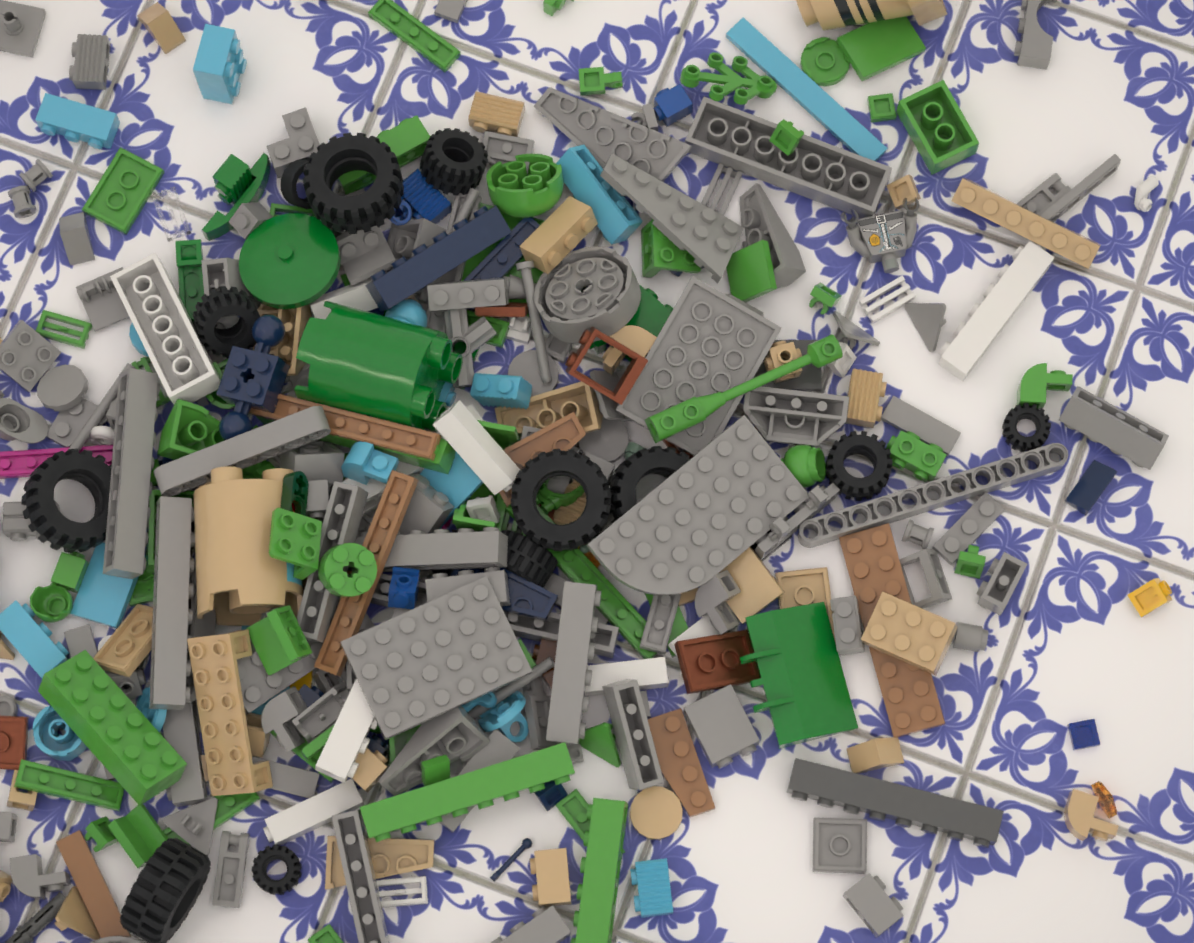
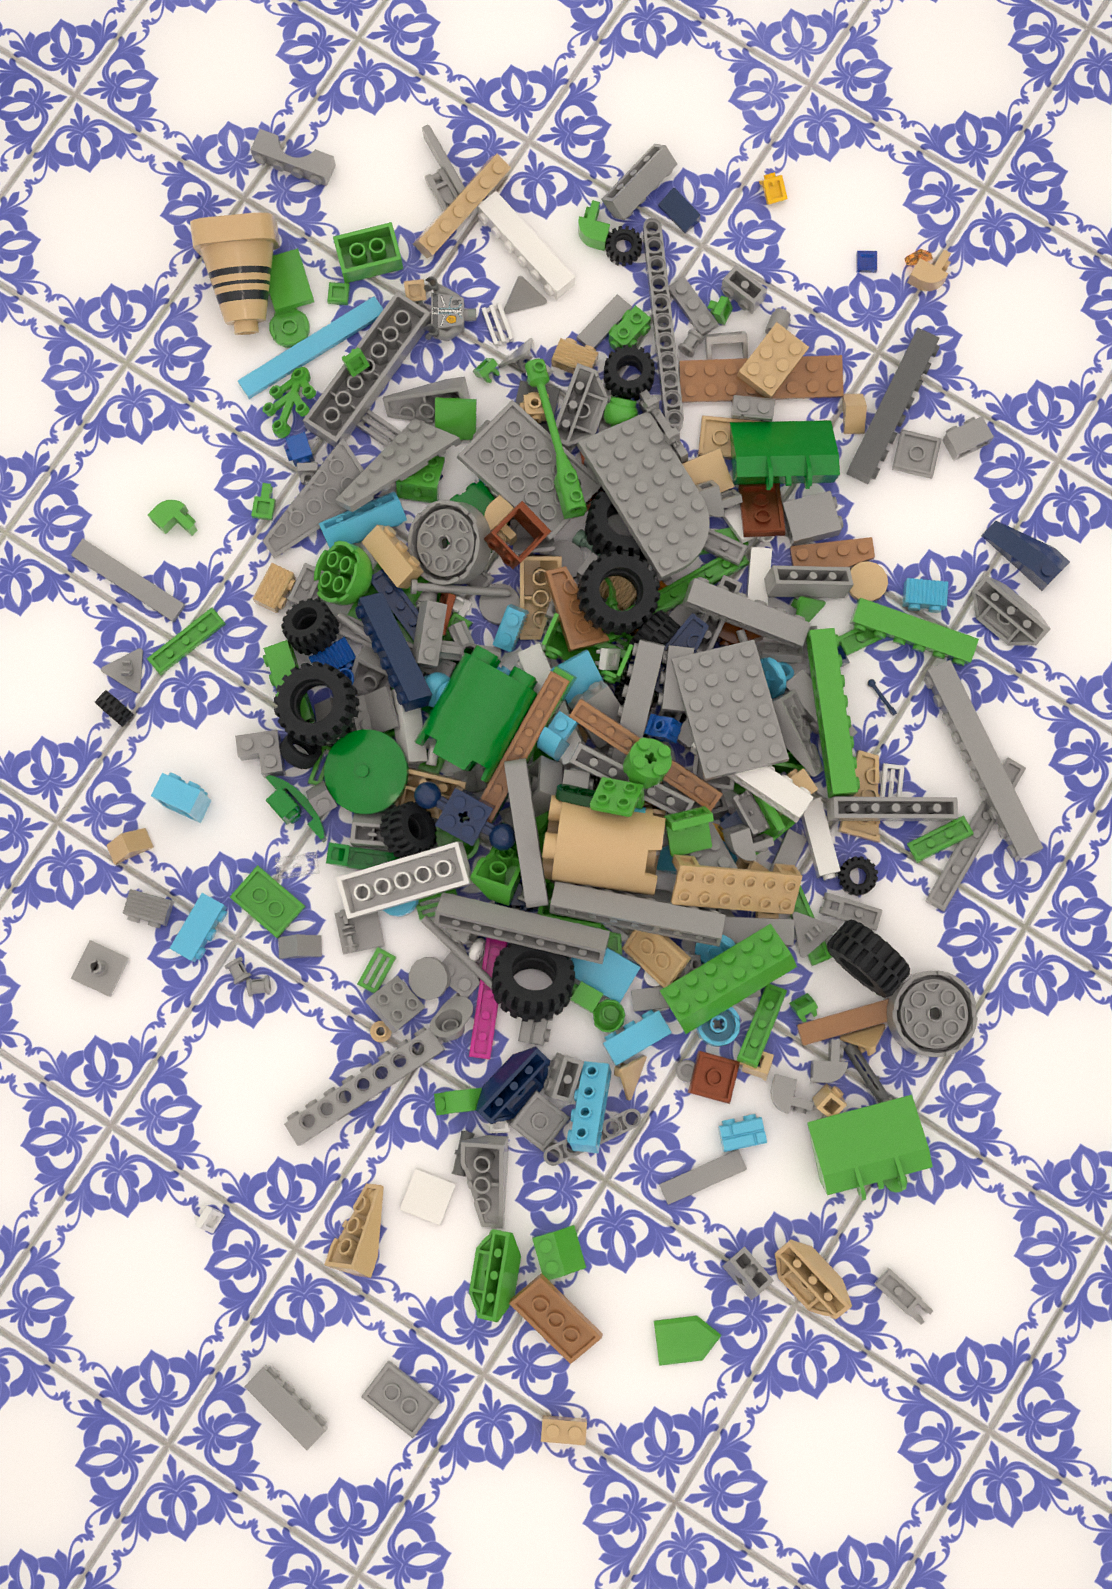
camera: 80 degrees left, 5 degrees up
(138, 834) = (812, 977): bright green panel -> none
(435, 770) = (812, 733): bright green tile -> none
(477, 448) = (564, 646): white brick -> none
(552, 877) = (903, 668): tan brick -> none
(1142, 191) = (454, 117): white arm -> none

